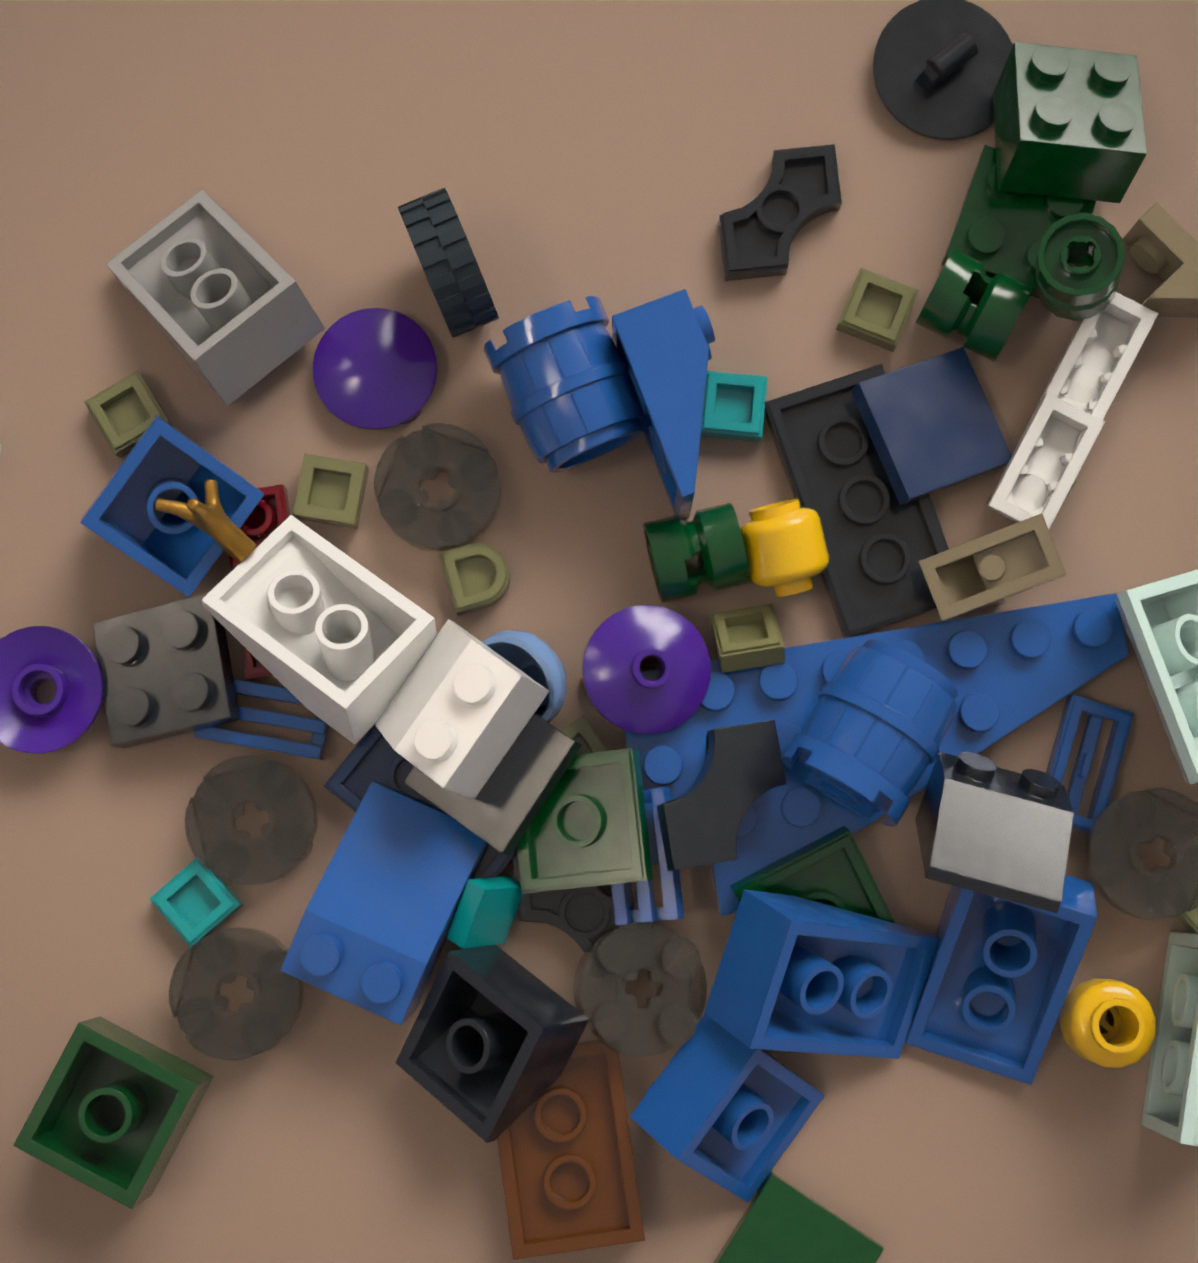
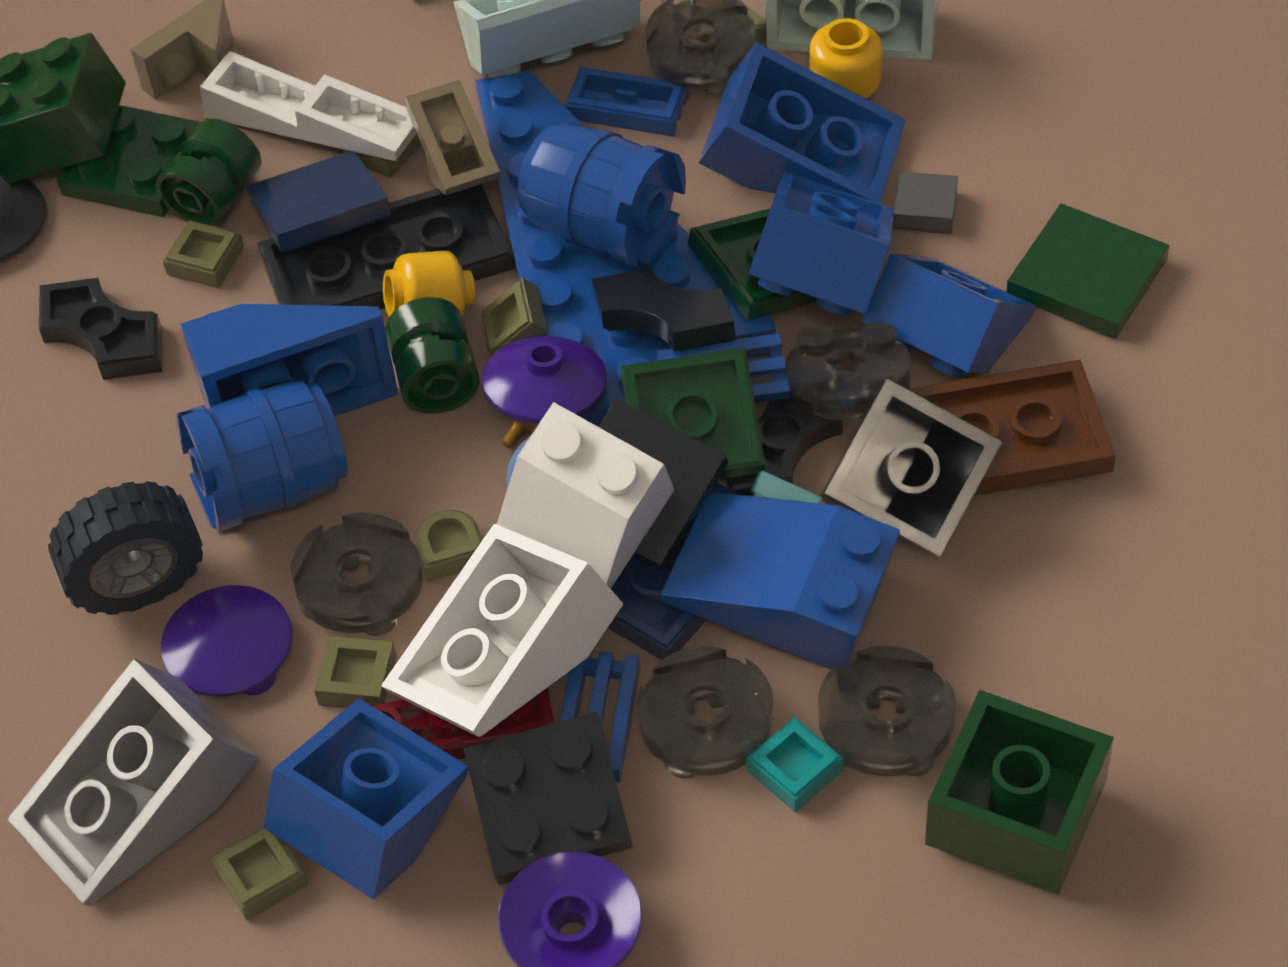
camera: 90 degrees left, 30 degrees down
(212, 520) = (386, 728): pearl gold bar -> none
(904, 1095) = (925, 202): none -> dark grey tile
(995, 830) = (690, 109): slope -> none
(1079, 266) = (185, 79): dark green wheel -> none

